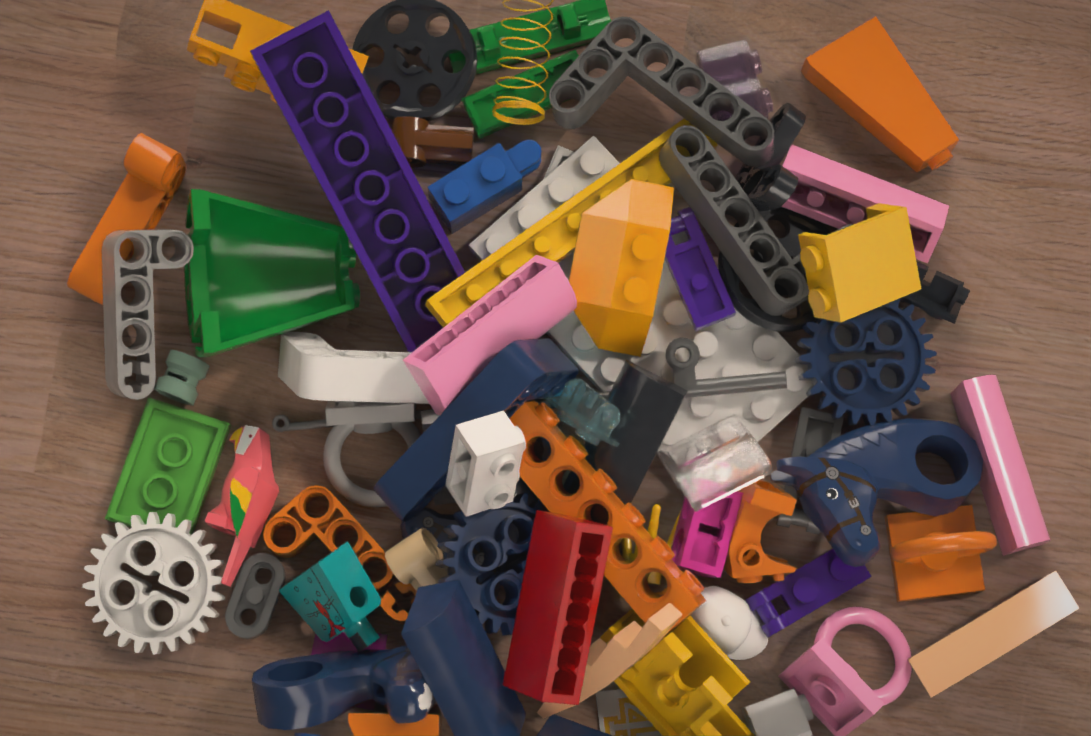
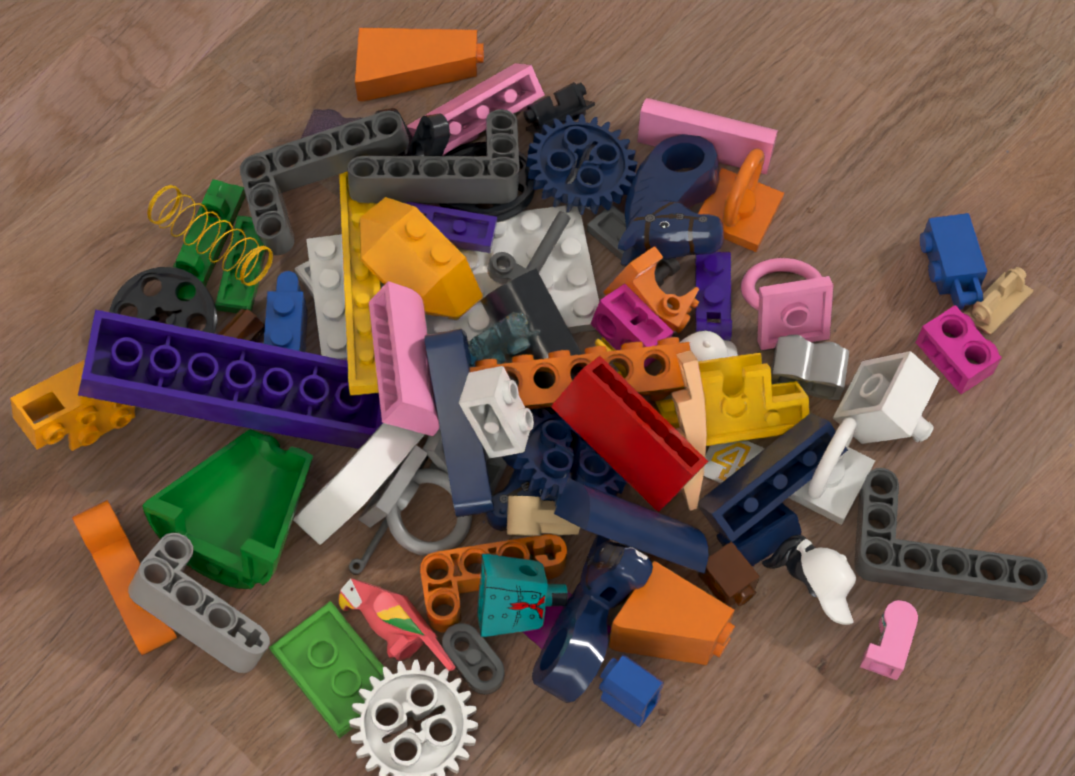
camera: 55 degrees left, 15 degrees down
(185, 368) = (272, 612): sand green wheel -> none
(715, 462) = (592, 285): clear slope -> none
(860, 264) = (522, 118): yellow panel -> none
(993, 634) = (817, 204): light nougat slope -> none

